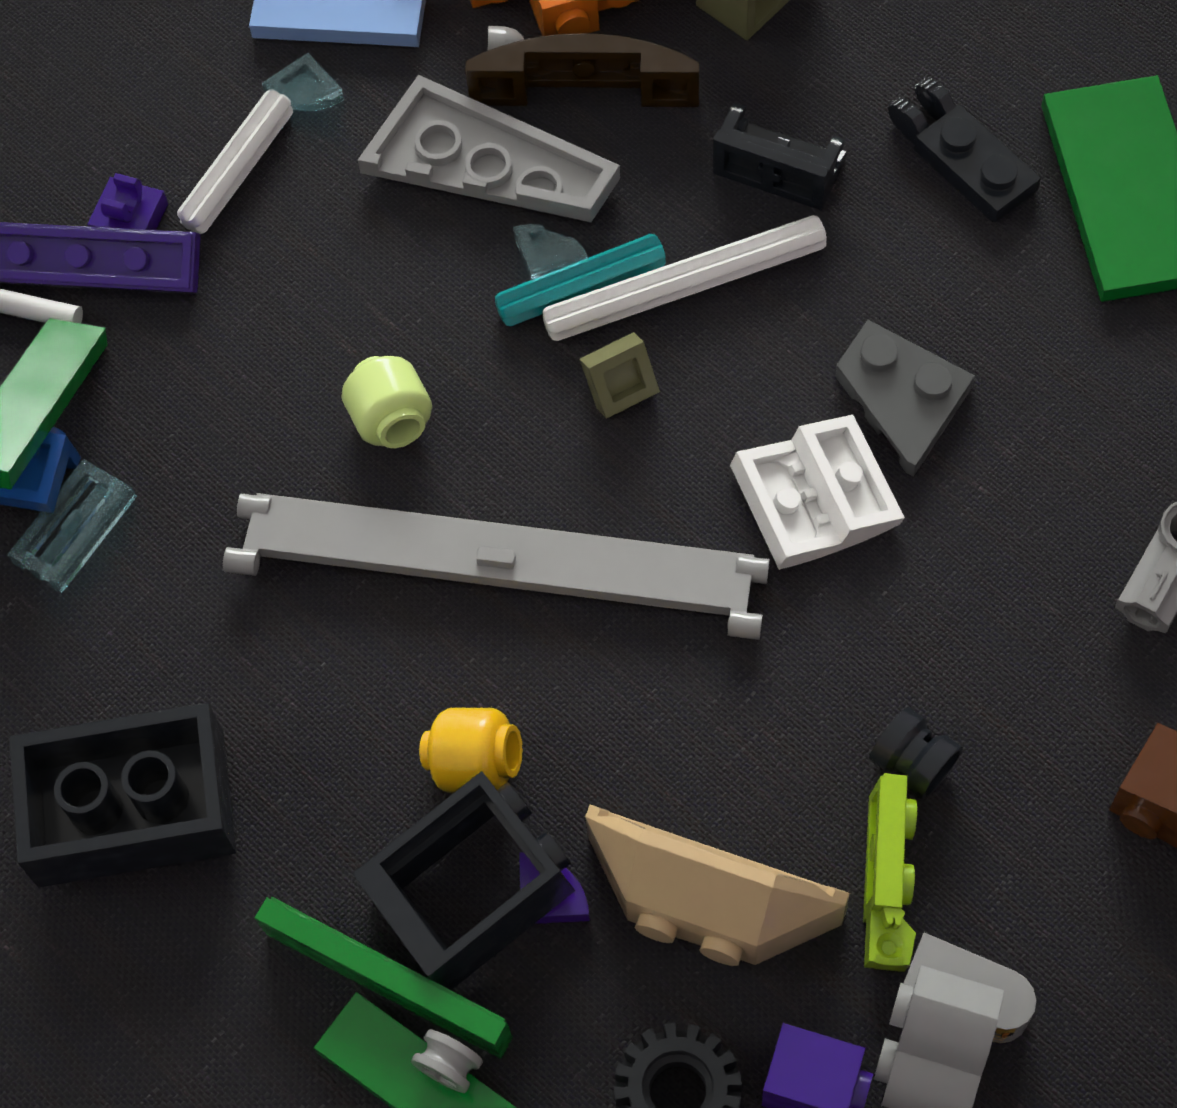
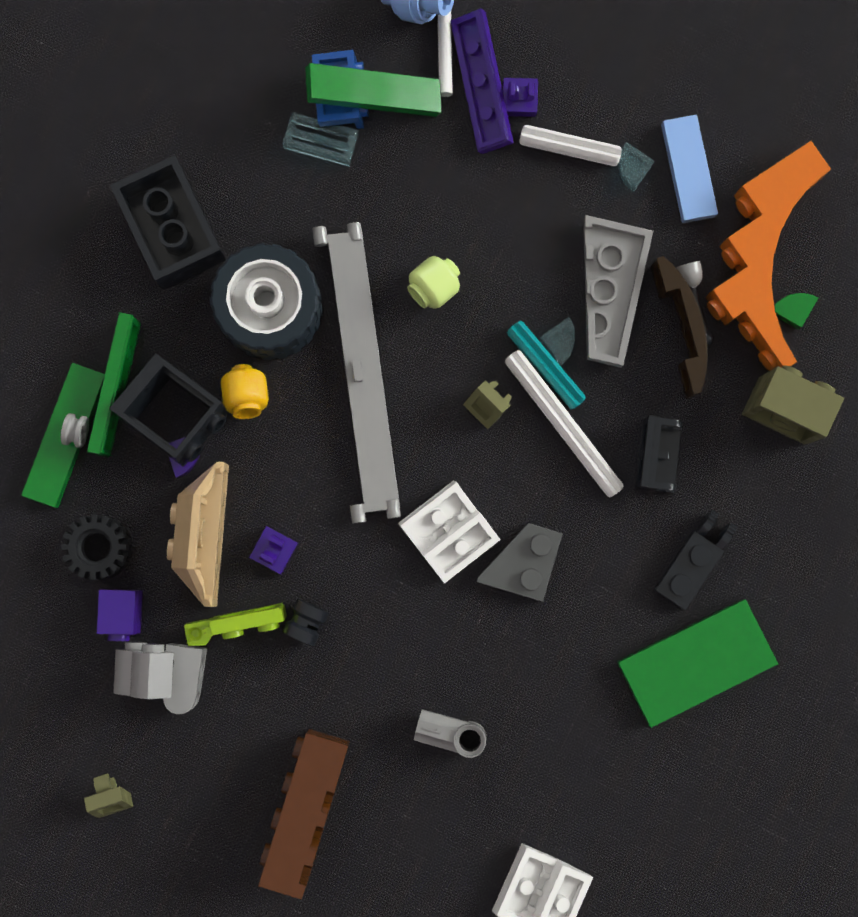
camera: 60 degrees right, 20 degrees up
(327, 663) = (266, 301): none -> wheel
(770, 782) = (273, 550): none -> dark purple tile

